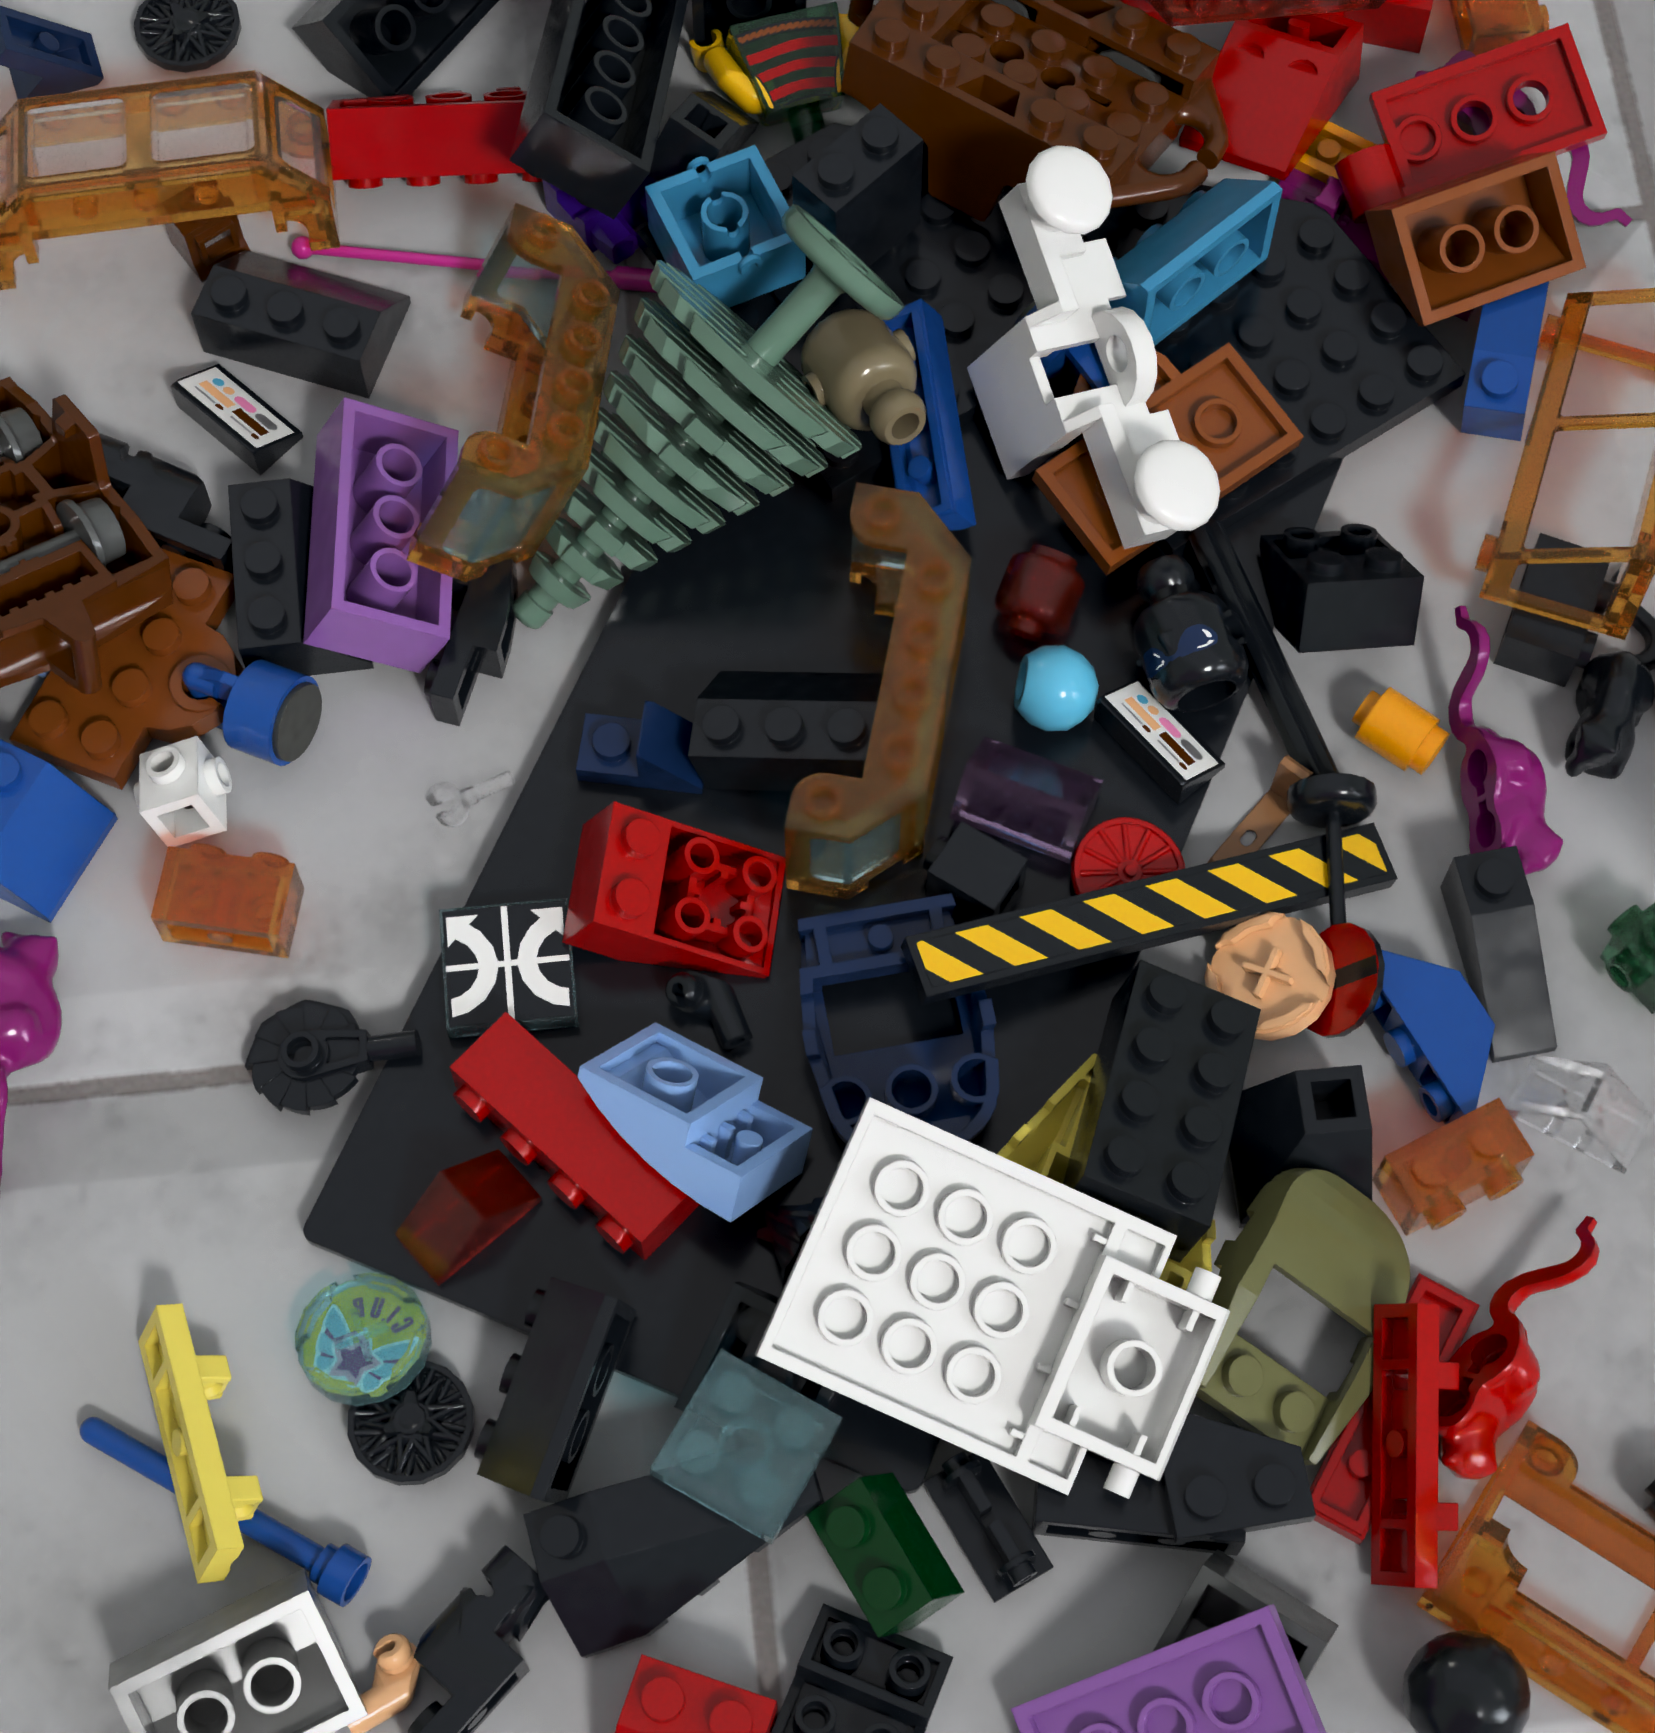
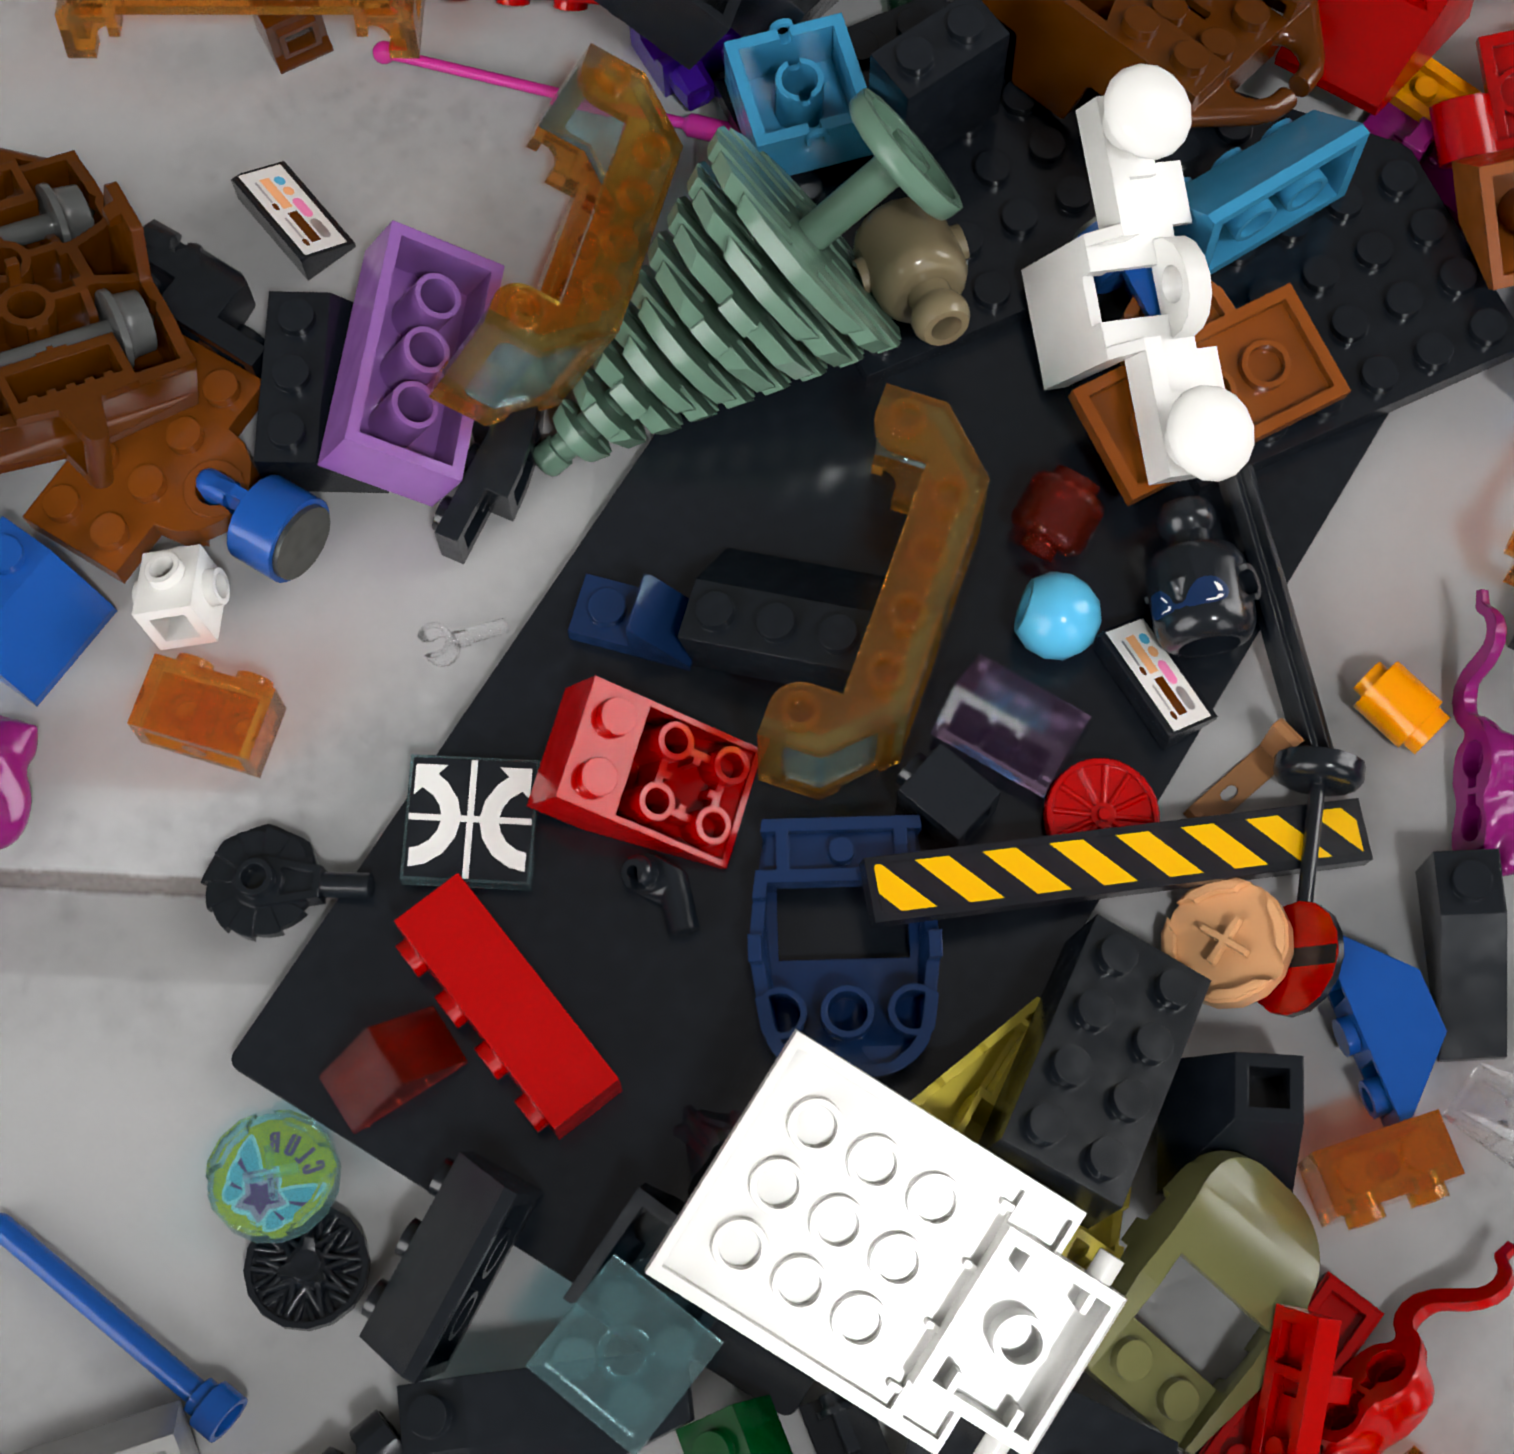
camera: 10 degrees right, 5 degrees up
(205, 1496) = (92, 1316): light yellow hinge -> none
(298, 321) = (368, 127): black slope -> none
(696, 1119) = (628, 1011): light blue slope -> none
(936, 458) = (973, 367): blue slope -> none
(1340, 589) = (1363, 552): black slope -> none

